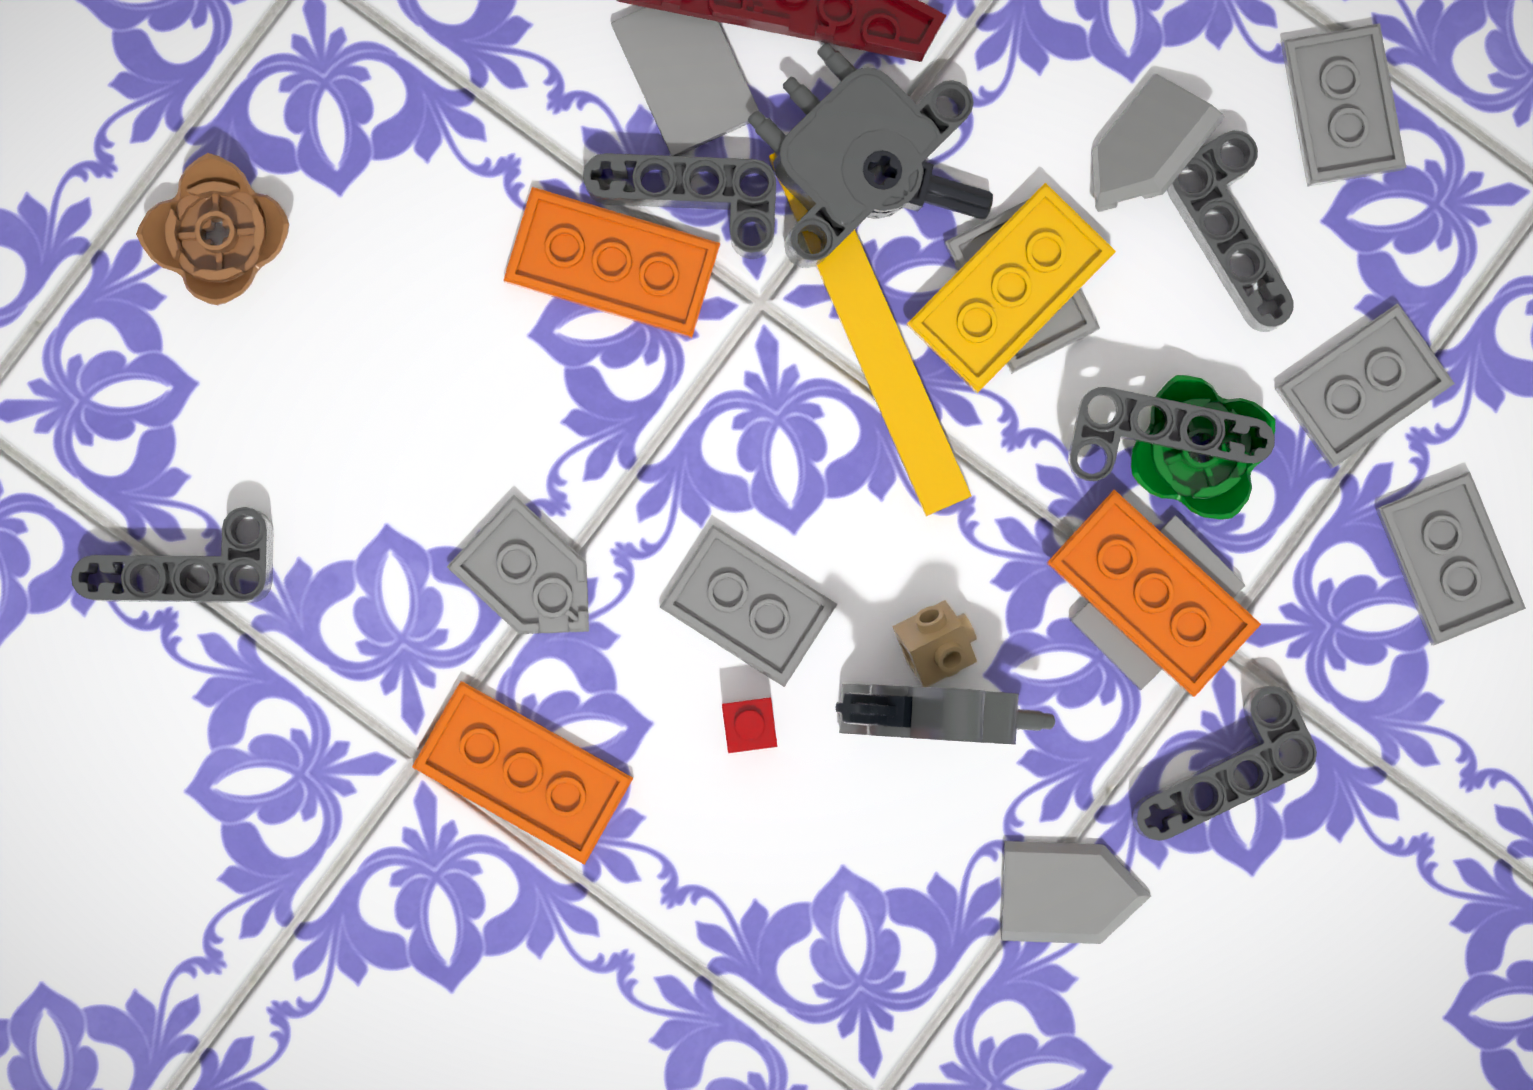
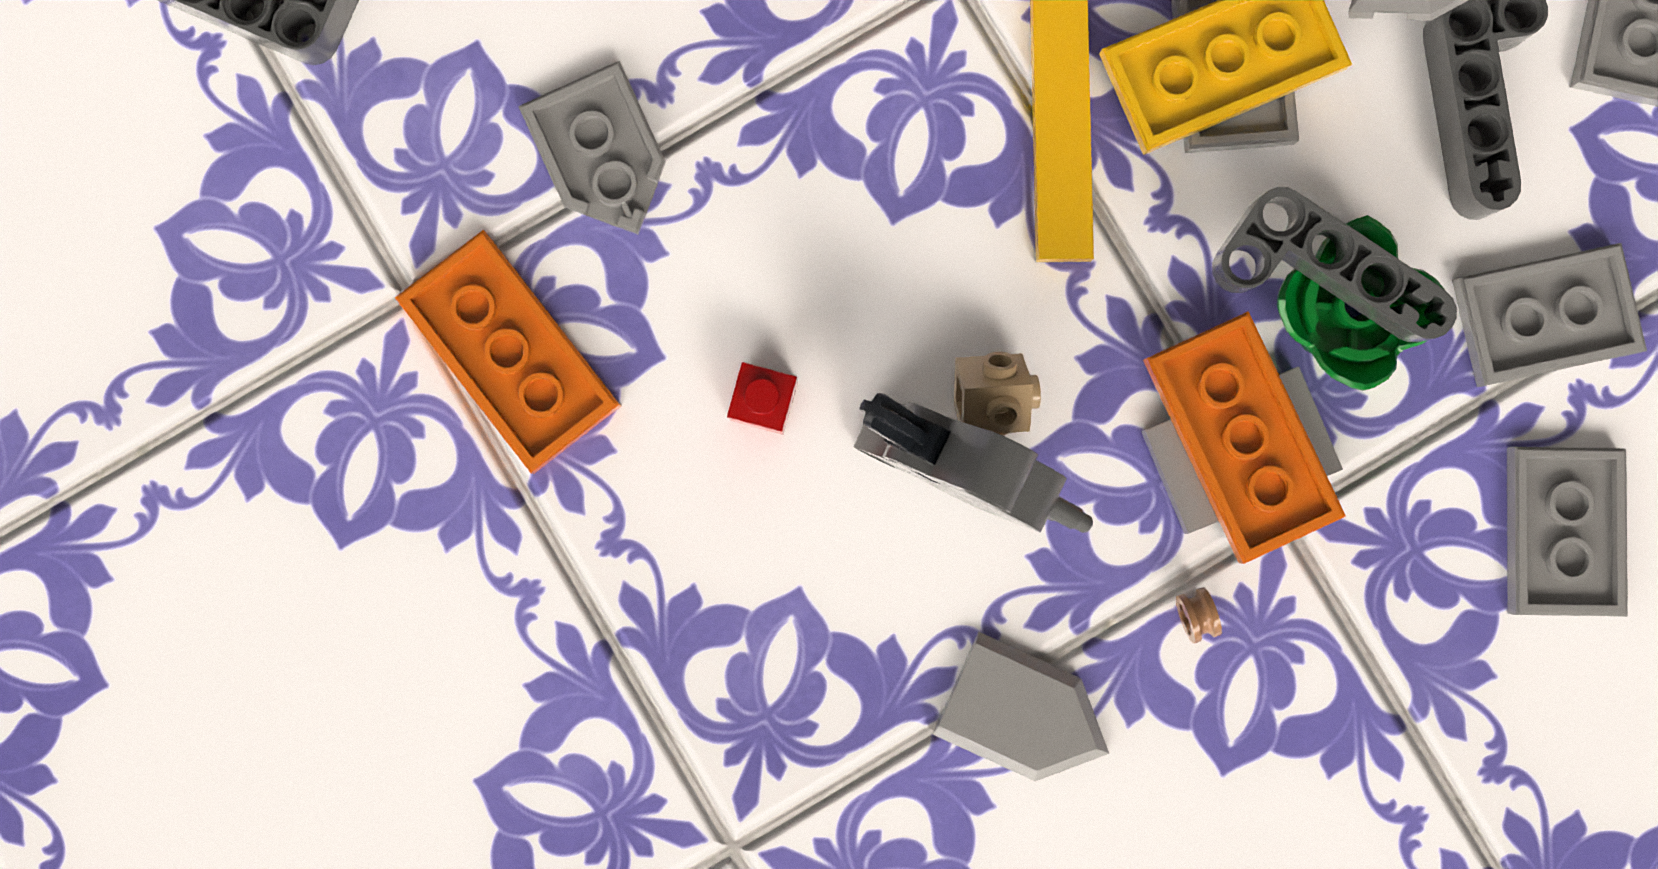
camera: 20 degrees right, 0 degrees up
(748, 605) = (814, 276): light grey tile -> none
(1176, 753) = (1198, 615): none -> medium nougat bush
(1221, 774) = (1235, 659): dark grey beam -> none

